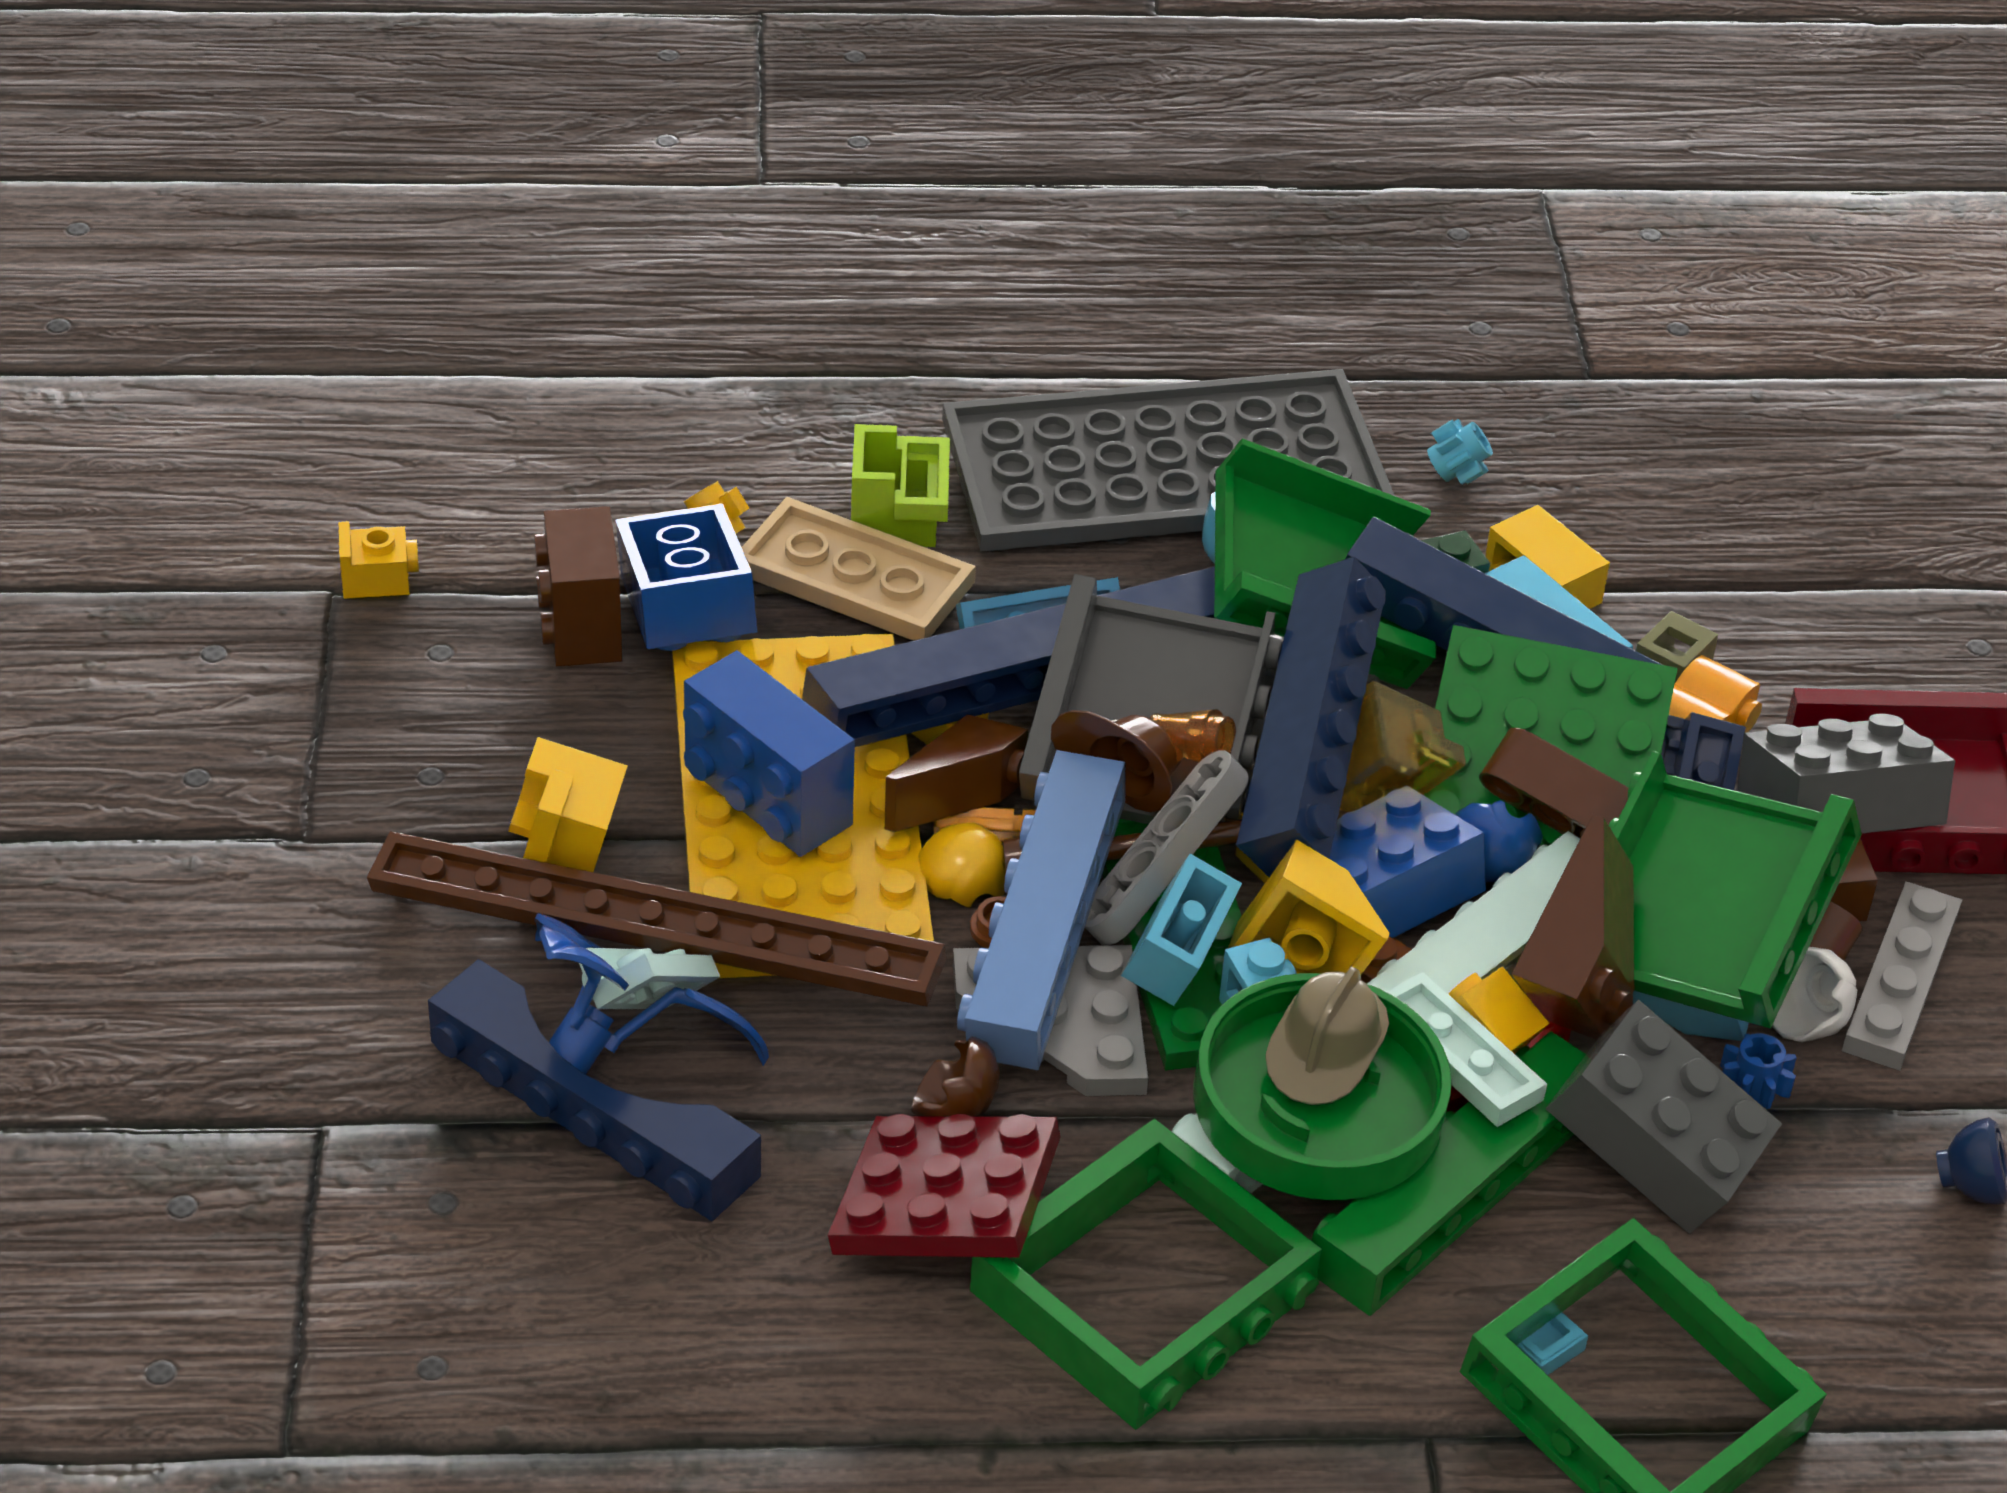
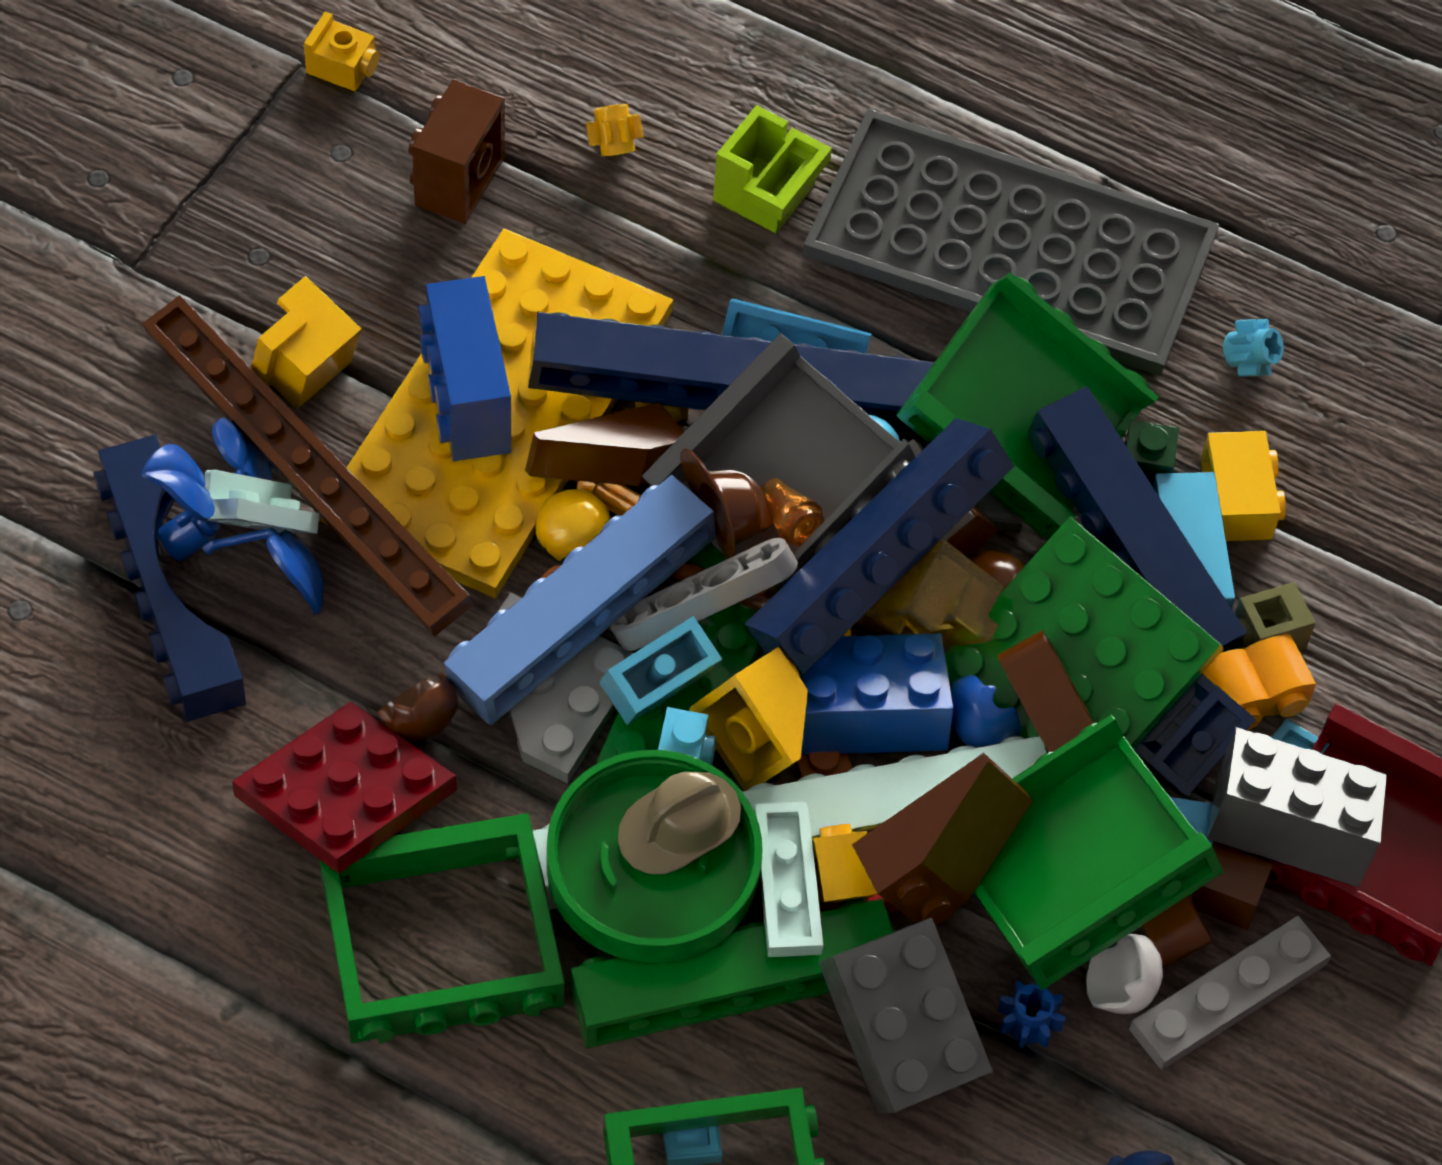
camera: 30 degrees right, 15 degrees up
(686, 577) = (538, 179): blue brick -> none
(856, 569) = (688, 228): tan plate -> none

